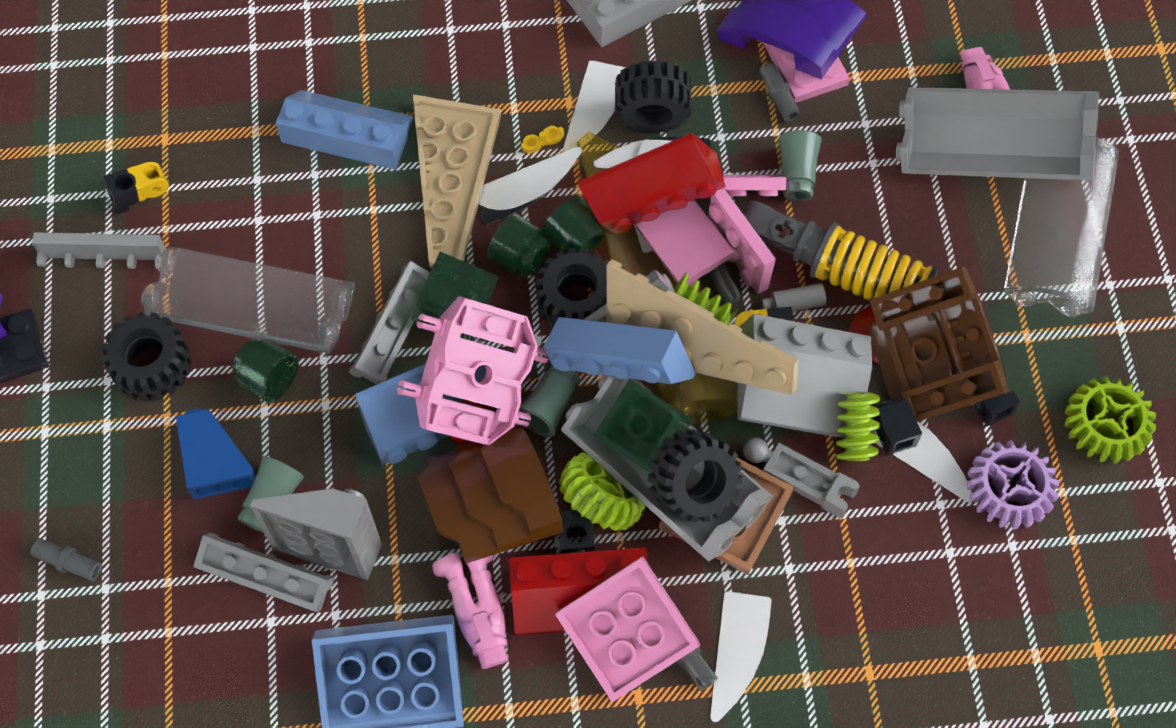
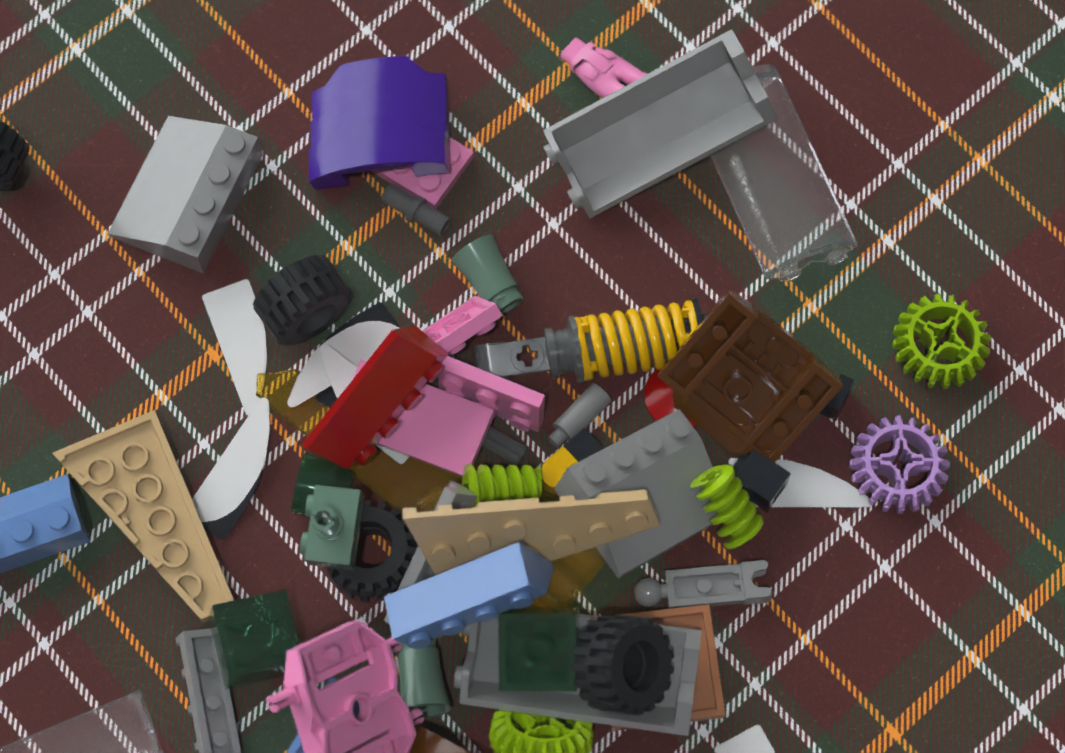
camera: 35 degrees left, 5 degrees up
(518, 246) = (278, 543): clear green piece -> none
(550, 136) = (222, 403): yellow piece -> none
(559, 251) = (333, 527): none -> sand green brick

